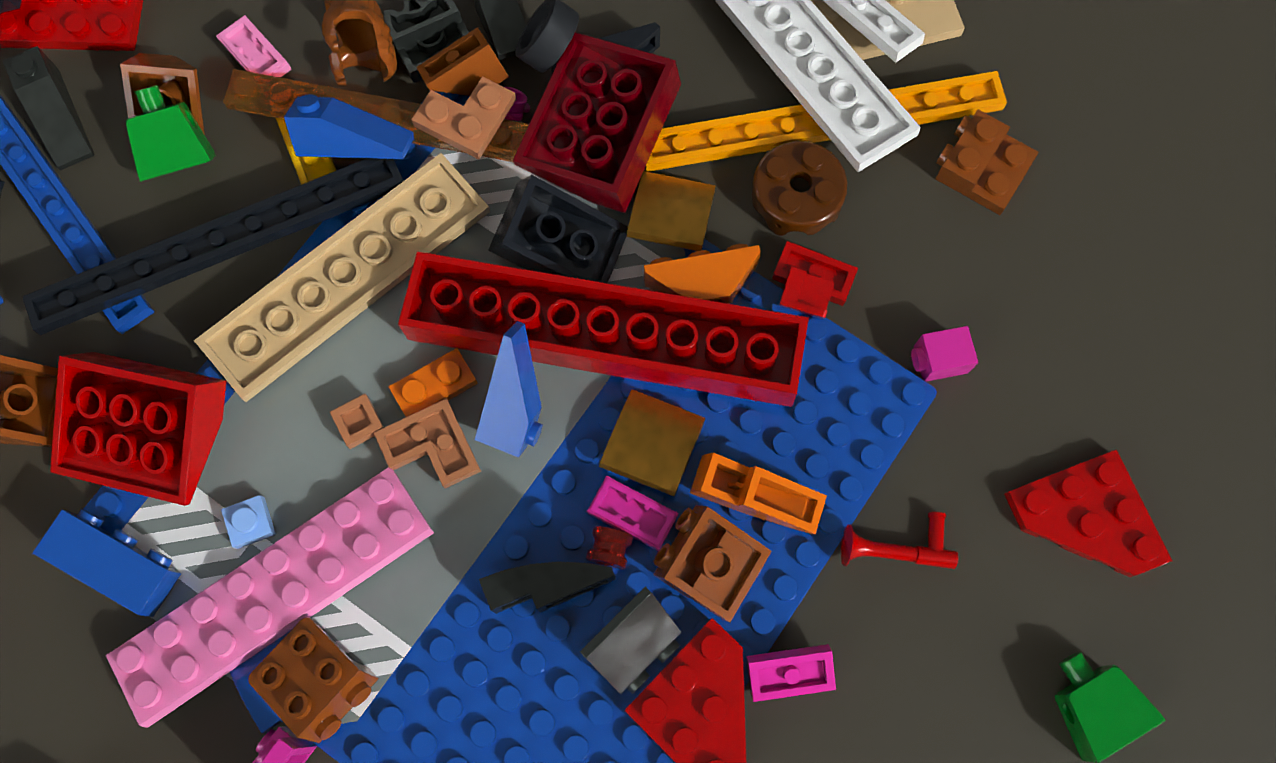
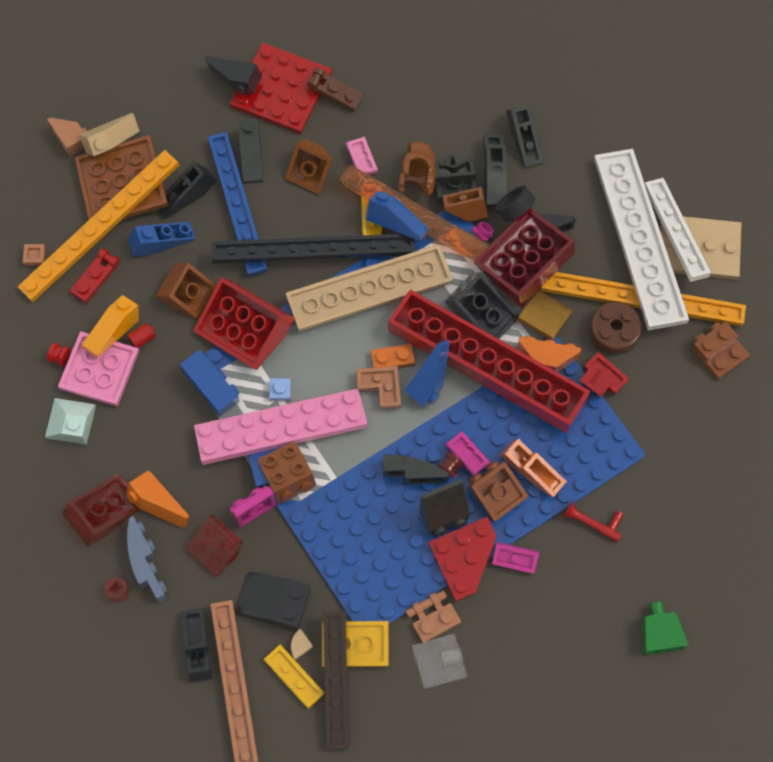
camera: 20 degrees right, 5 degrees down
(165, 136) = (304, 187): green torso -> none
(357, 421) = (349, 360): nougat plate -> none
(466, 126) = (457, 235): nougat plate -> none
(652, 442) = (490, 424): pearl gold slope -> none
(944, 354) = (655, 437): dark pink brick -> none
(1092, 514) = (698, 542): red plate -> none

